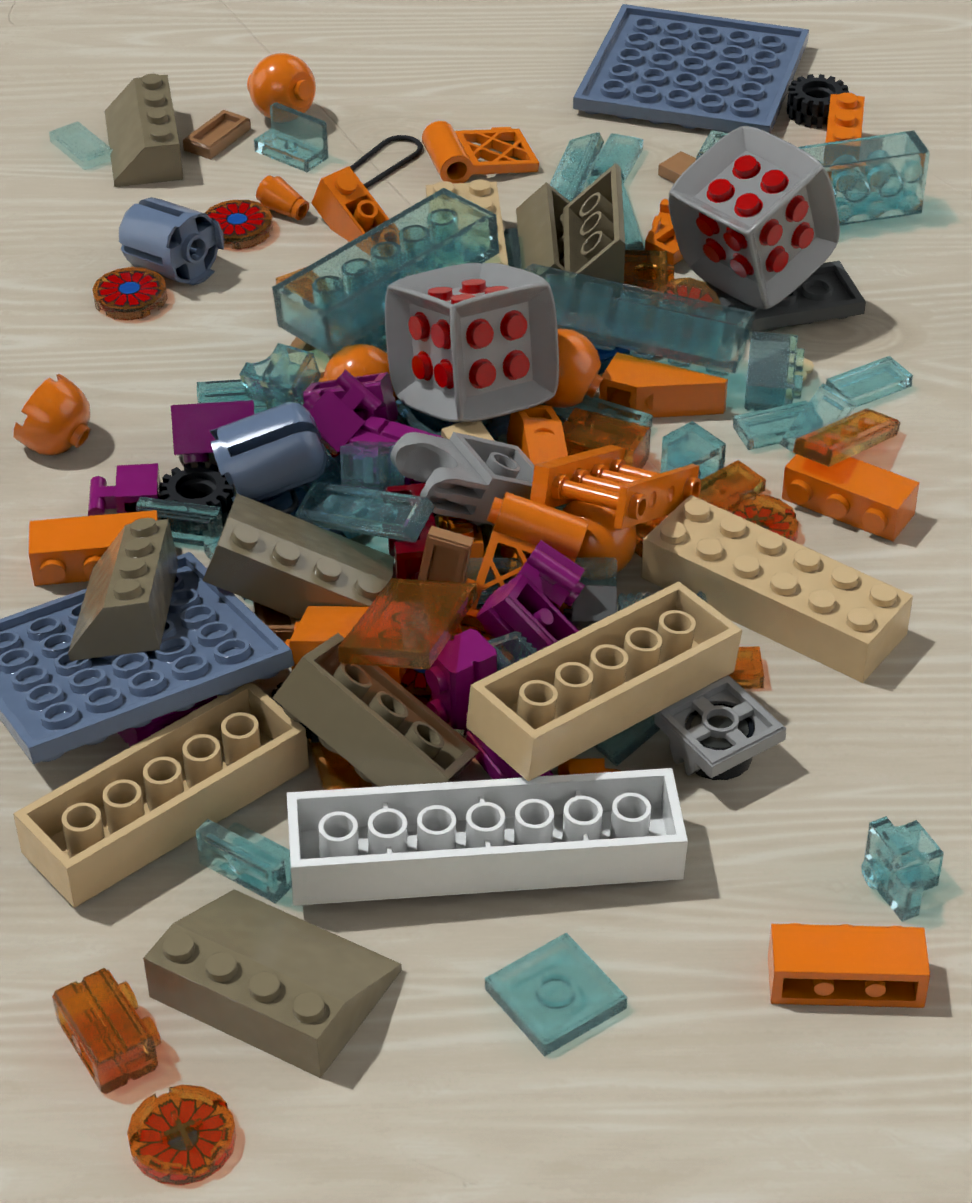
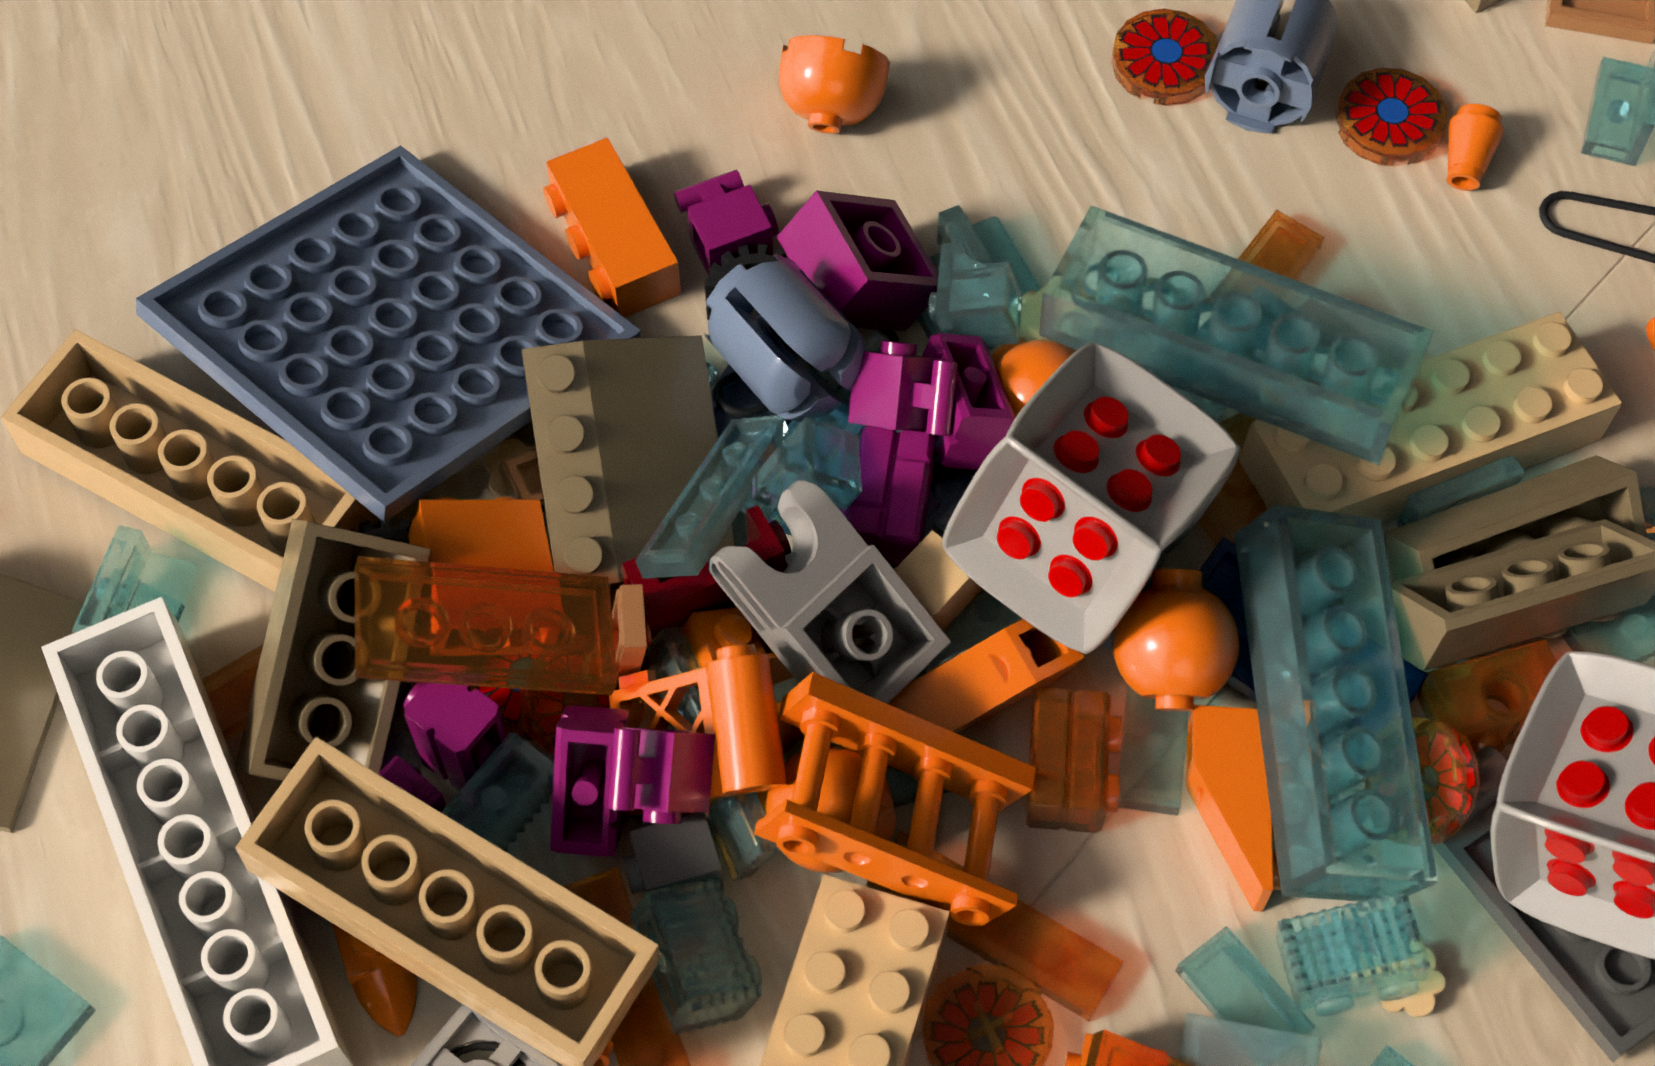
camera: 70 degrees right, 20 degrees up
(128, 593) = (482, 299): dark tan slope -> none
(188, 521) = (693, 290): clear light blue tile -> none
(347, 205) = (1469, 259): orange slope -> none
(692, 446) = (1073, 882): clear light blue slope -> none

